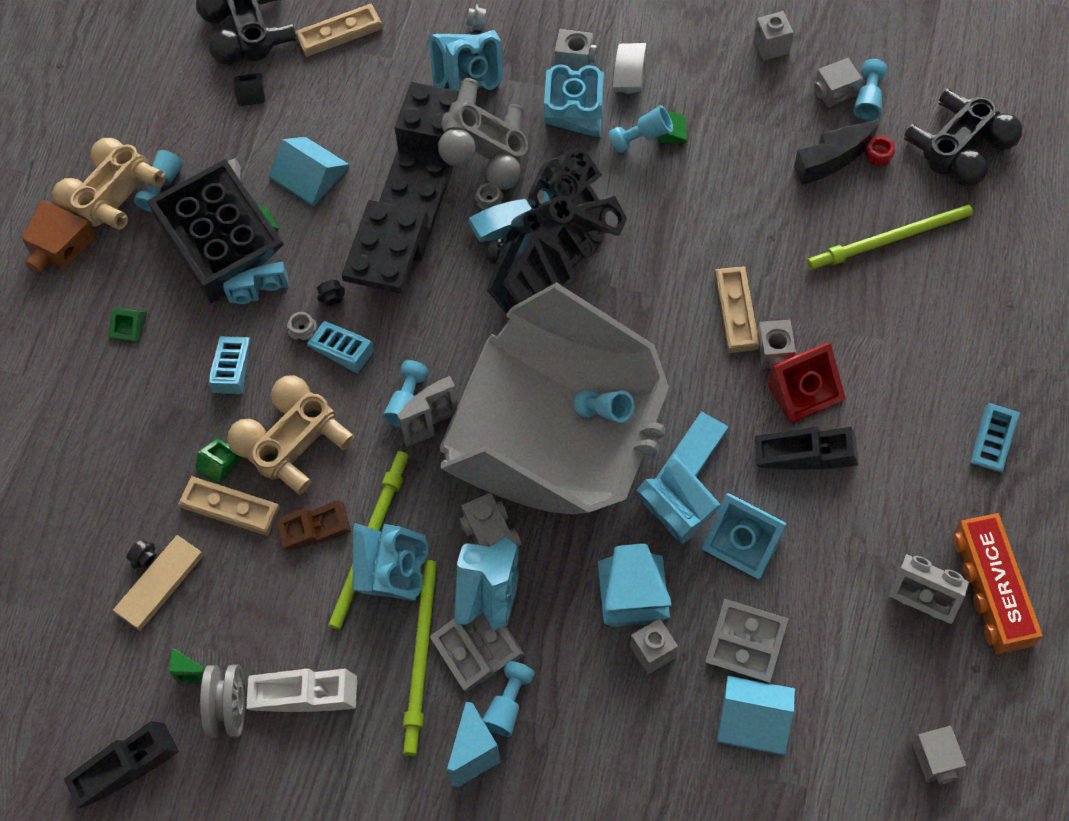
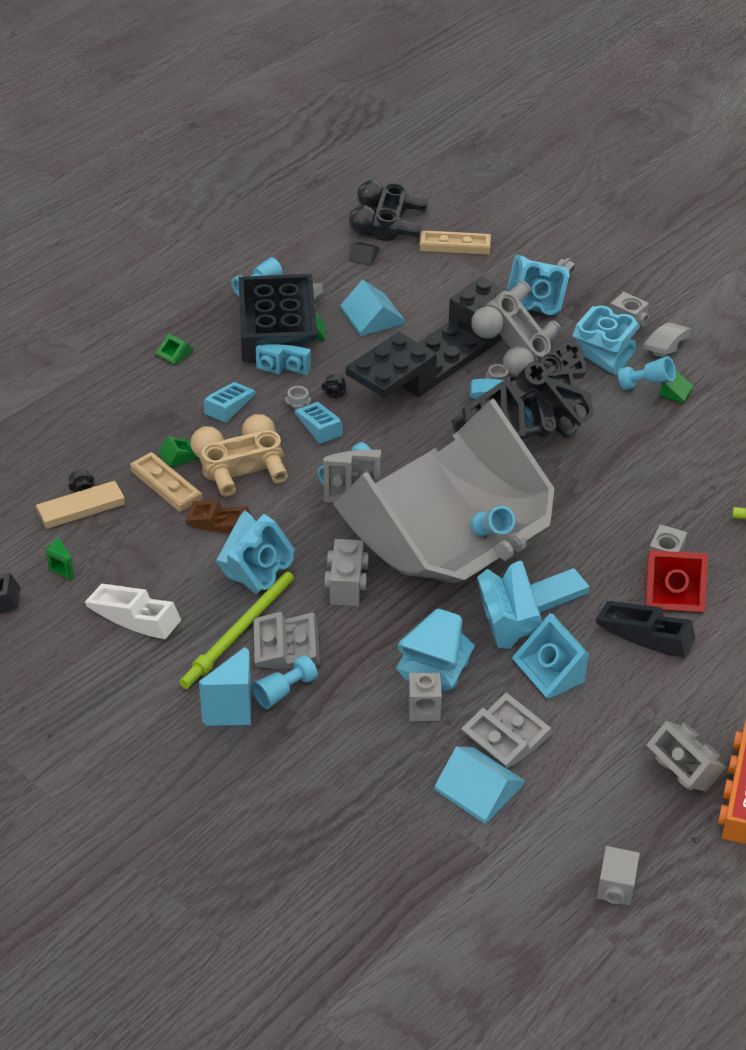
camera: 25 degrees right, 20 degrees down
(55, 237) = (161, 282): dark orange torso -> none
(116, 176) = (227, 261): tan piece -> none
(222, 701) = (69, 582): light grey wheel -> none
(391, 484) = (294, 516): lime bar -> none
(486, 582) = (319, 592): medium azure piece -> none
(736, 309) = (651, 514): tan tile -> none

